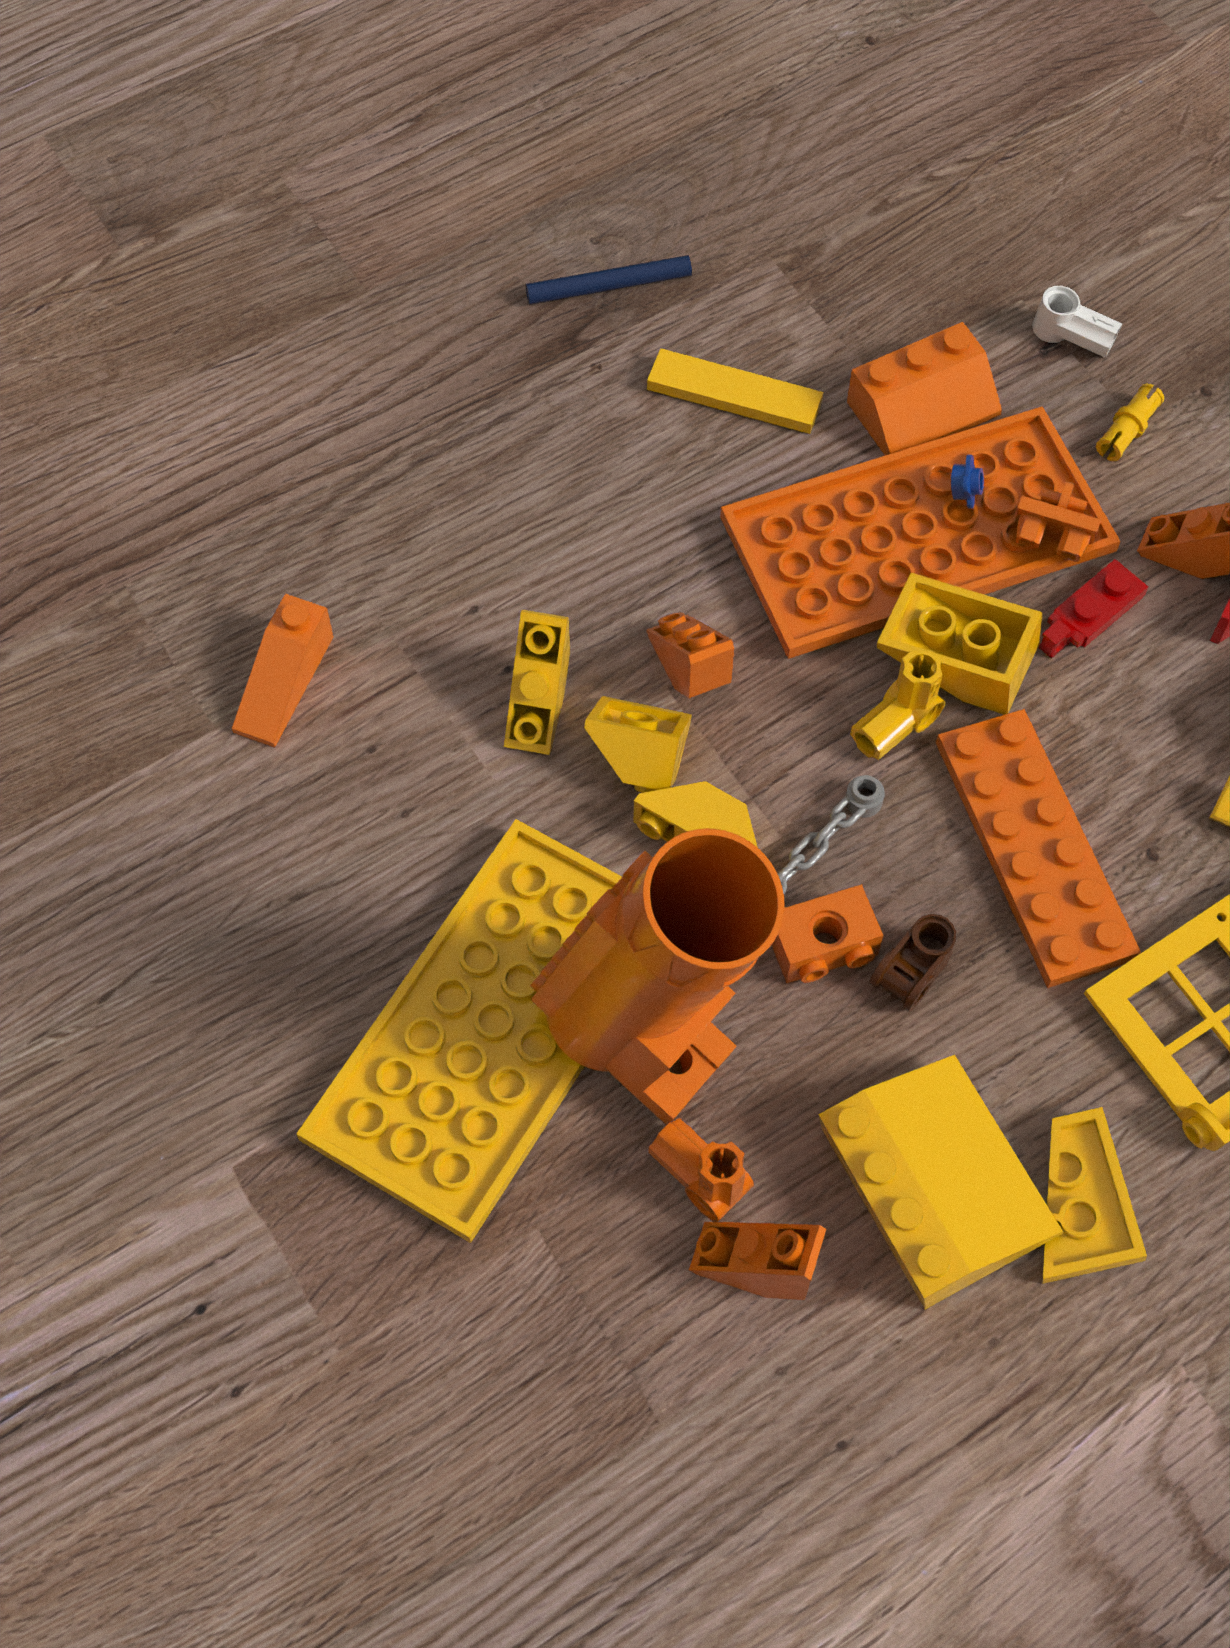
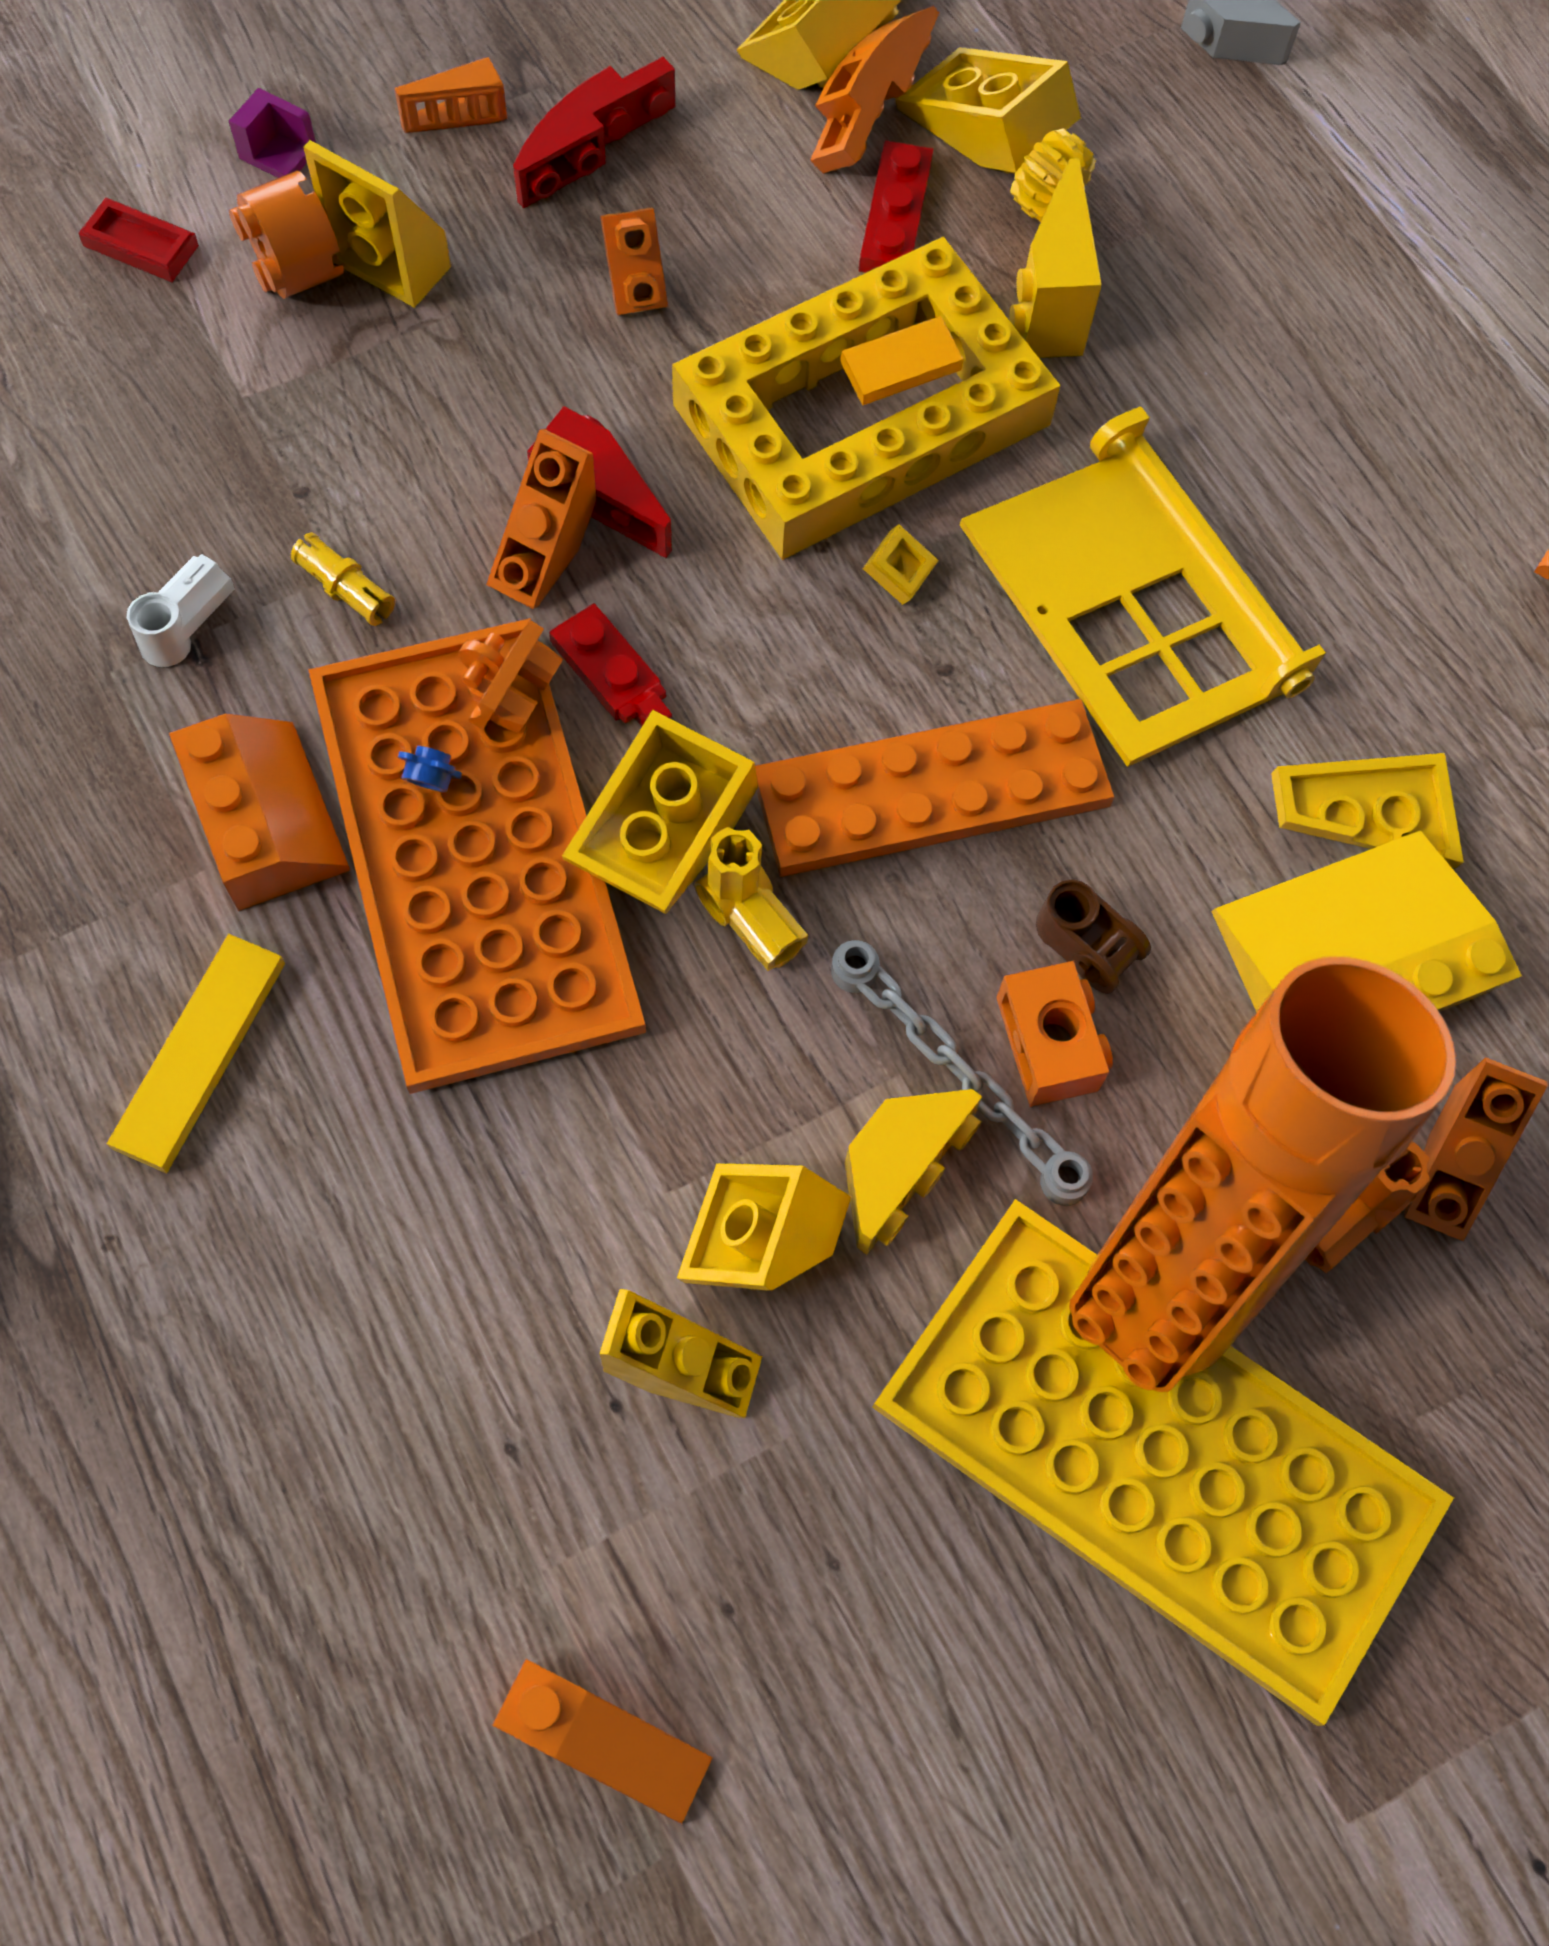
camera: 90 degrees left, 5 degrees up
(692, 654) = (641, 1147): orange slope -> none

